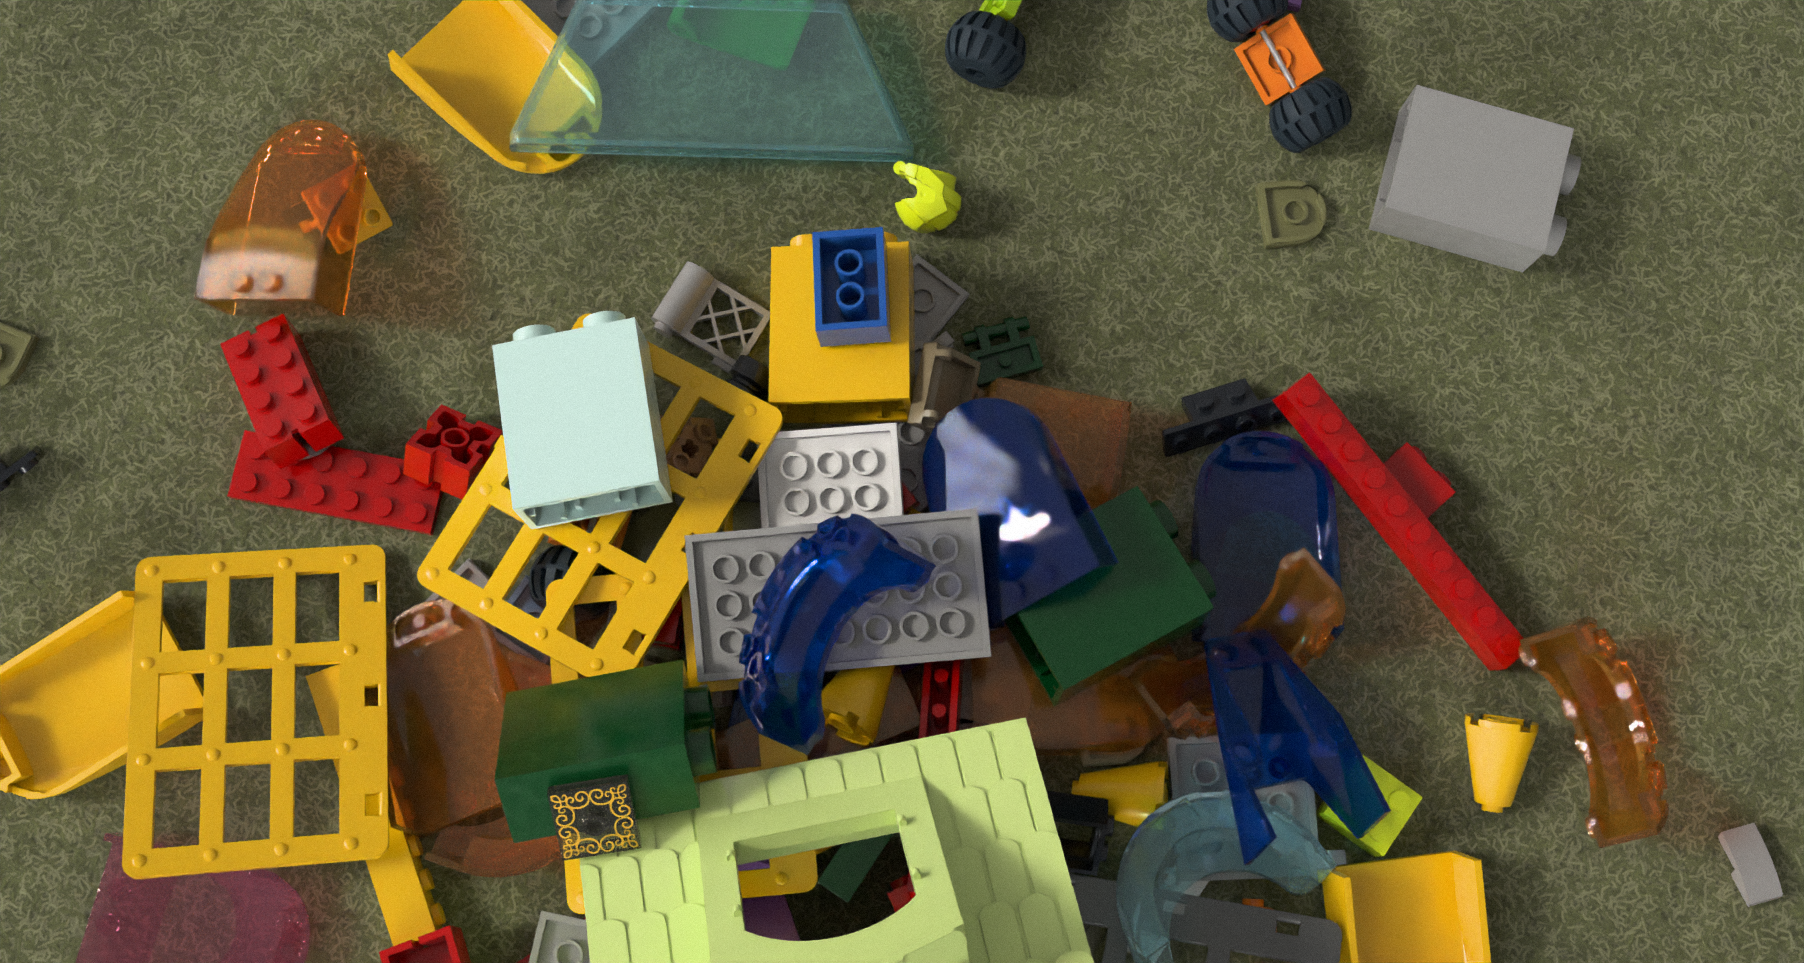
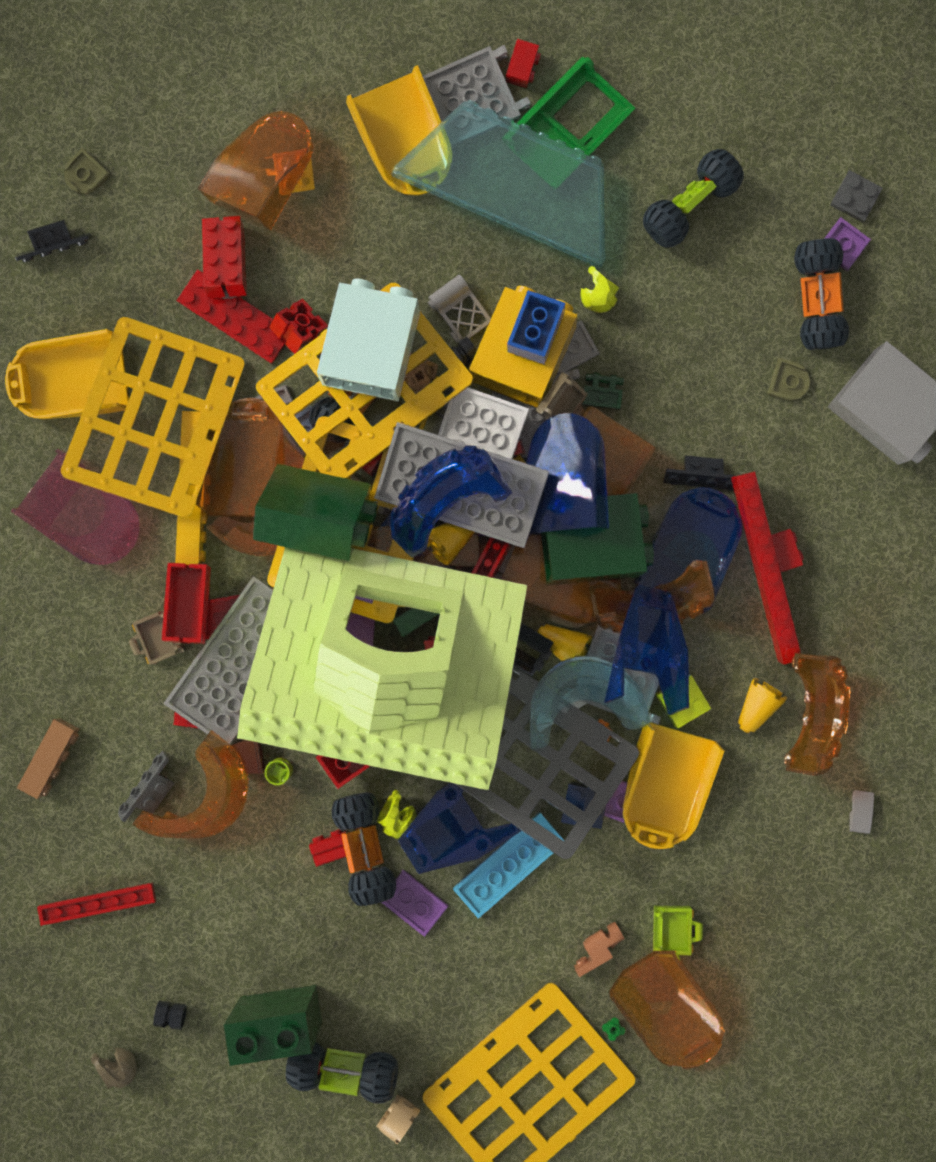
camera: 25 degrees right, 10 degrees up
(594, 817) = (296, 544): clear smoke plate -> none

